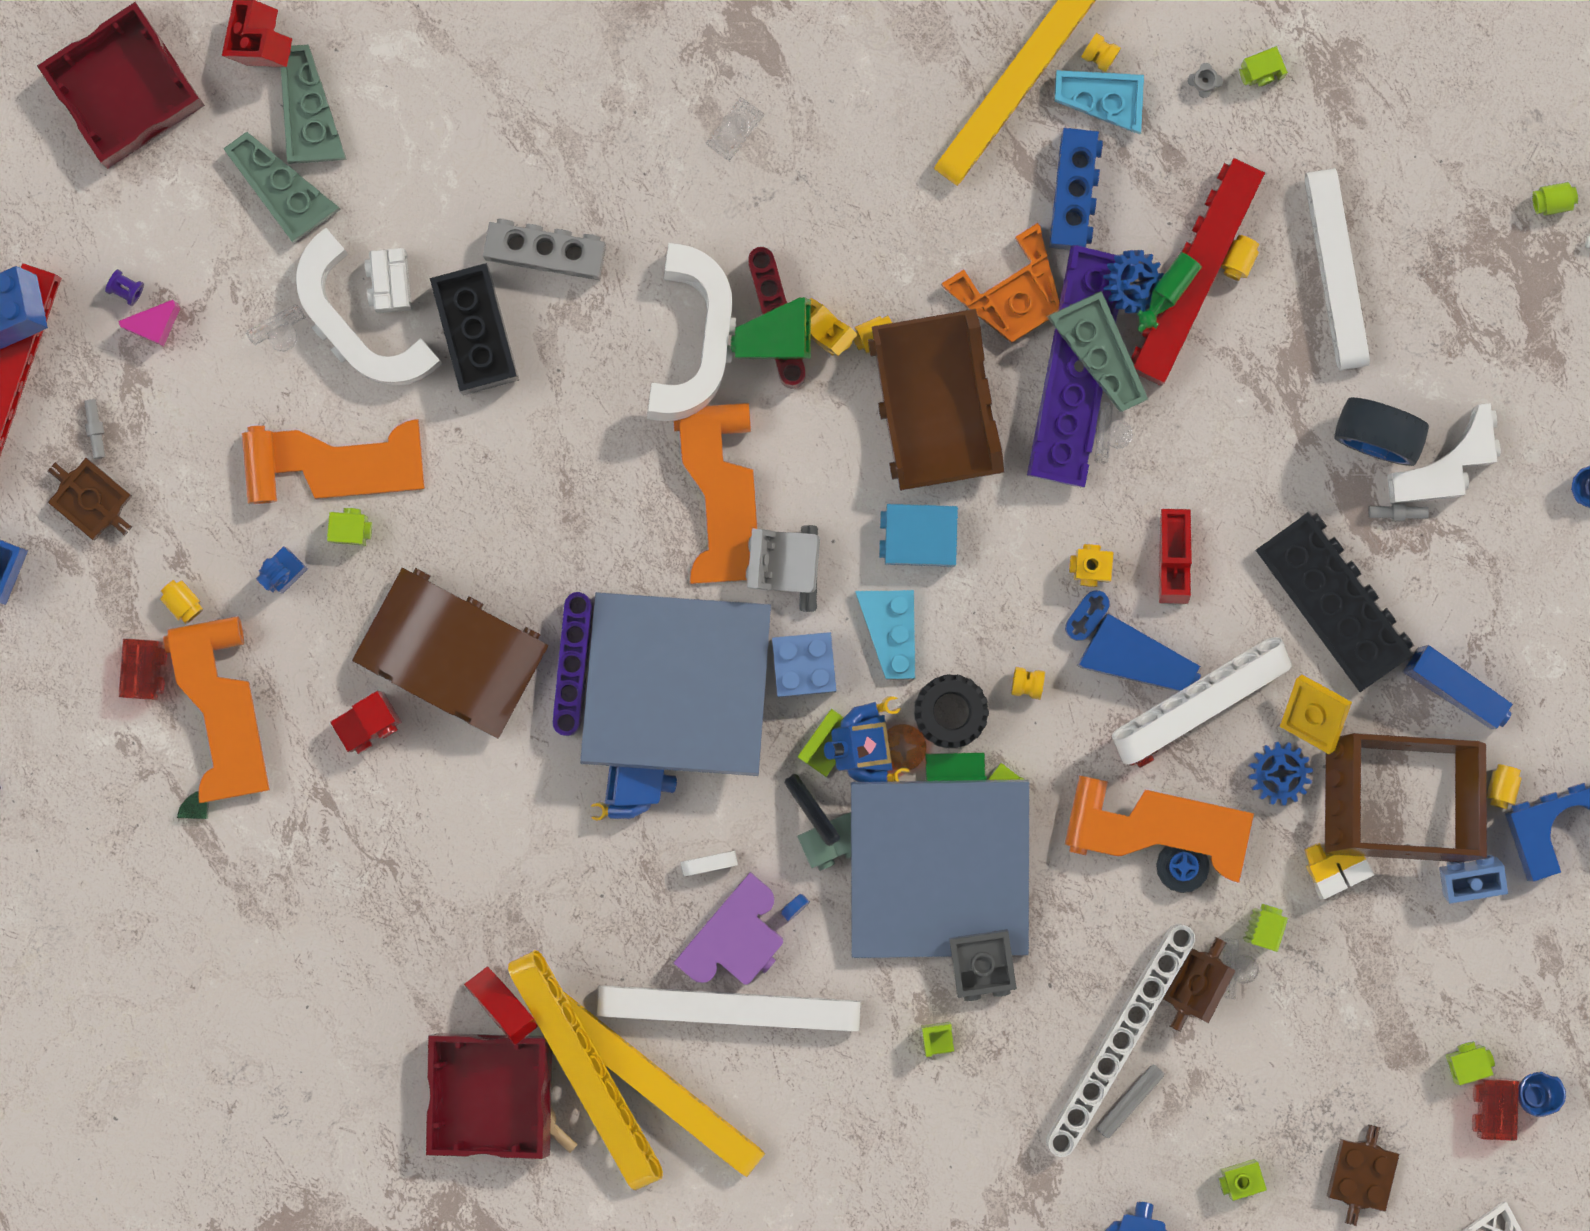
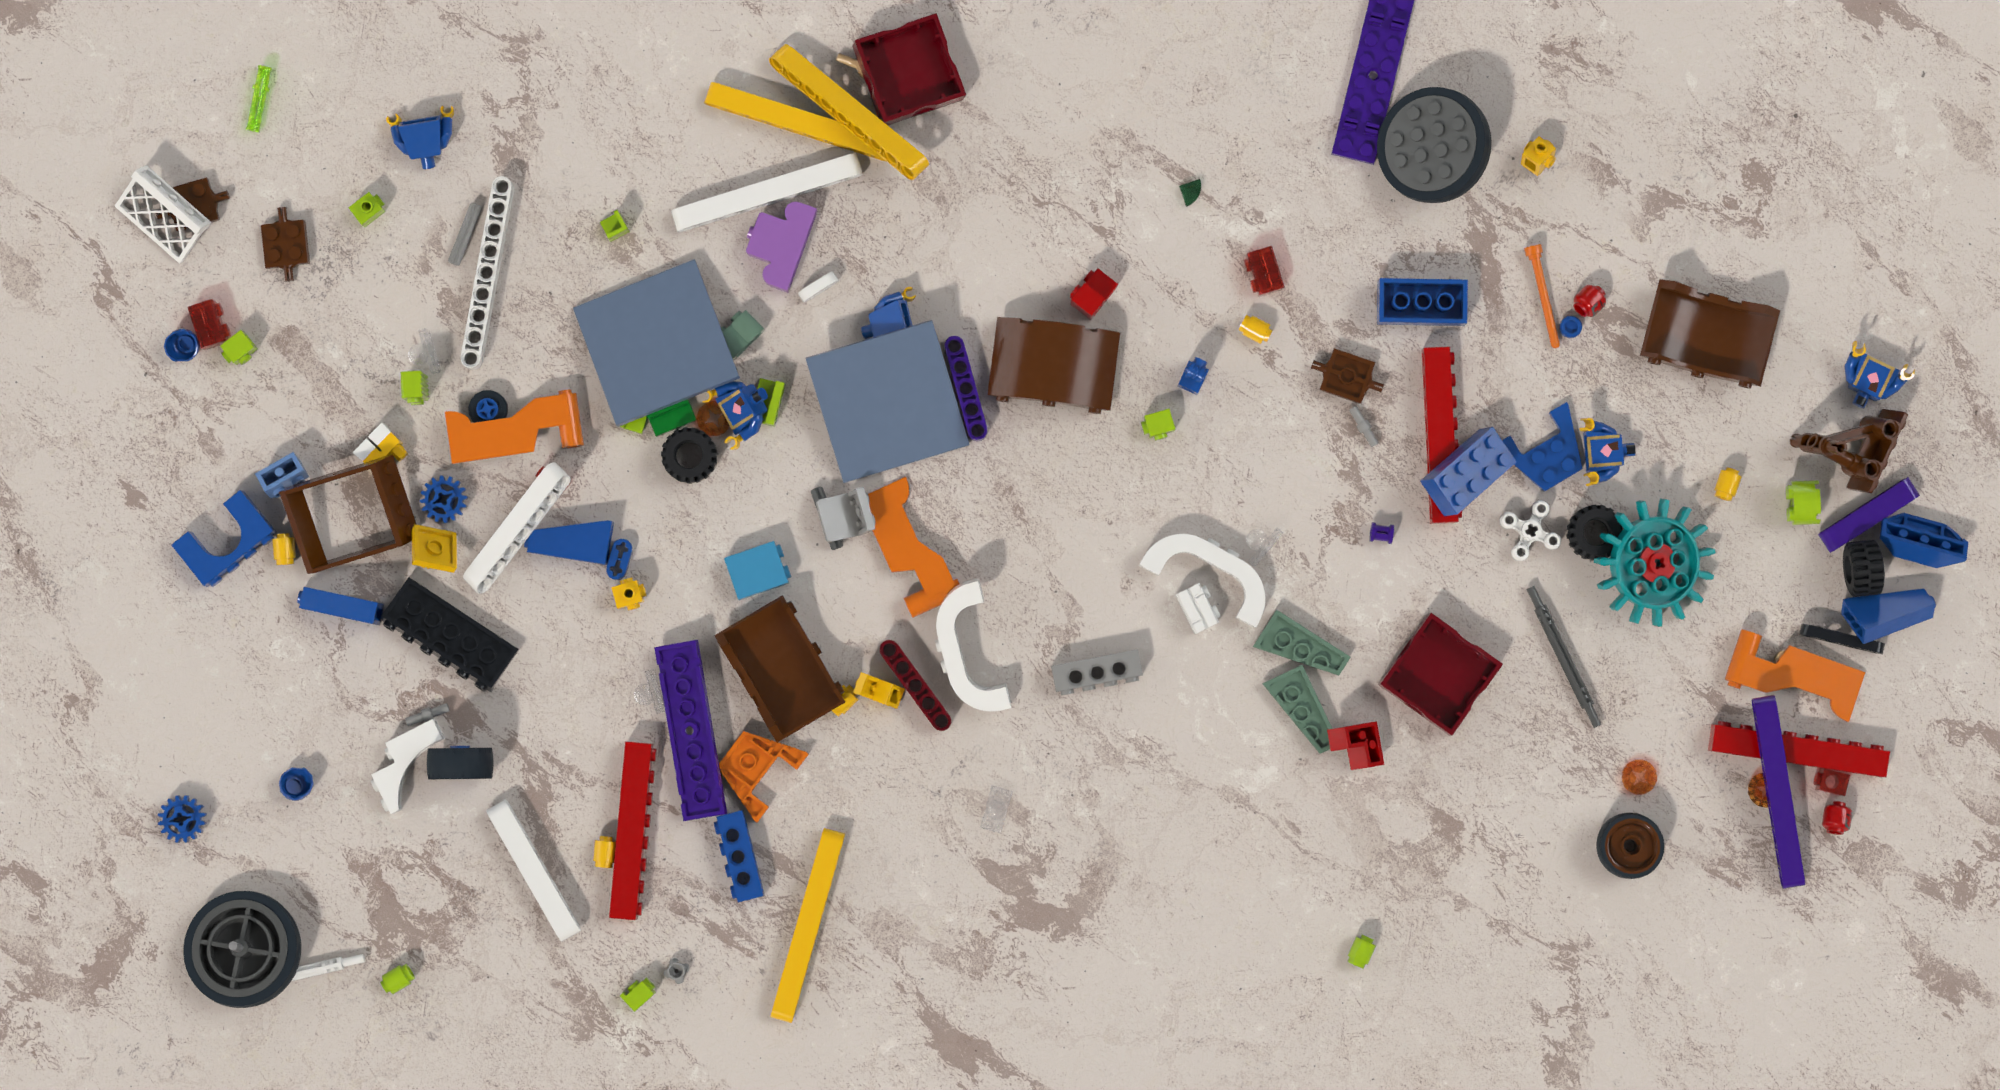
camera: 160 degrees right, 0 degrees up
(153, 323) = (1350, 514): dark pink slope -> none
(225, 706) = (1196, 268): orange door -> none
(331, 469) = (1185, 462): orange door -> none
(474, 329) = (1124, 595): black brick -> none
(501, 1005) = (924, 134): red slope -> none
(776, 334) = (909, 669): green slope -> none
(795, 907) = (748, 277): blue tile -> none
(804, 664) = (804, 449): medium blue brick -> none
(812, 809) = (760, 350): black axle -> none
(891, 627) = (752, 497): medium azure wing -> none
(983, 964) = (601, 288): dark grey plate -> none
(1028, 683) = (643, 495): yellow wheel -> none
(1099, 346) = (682, 750): sand green wing -> none
(1101, 52) = (757, 961): yellow wheel -> none
(1103, 95) = (744, 931): medium azure wing -> none
(1128, 268) = (665, 804): blue gear -> none
(1169, 289) = (646, 806): green wheel -> none
(1175, 556) = (573, 623): red slope -> none
(1199, 985) = (446, 330): reddish brown plate -> none

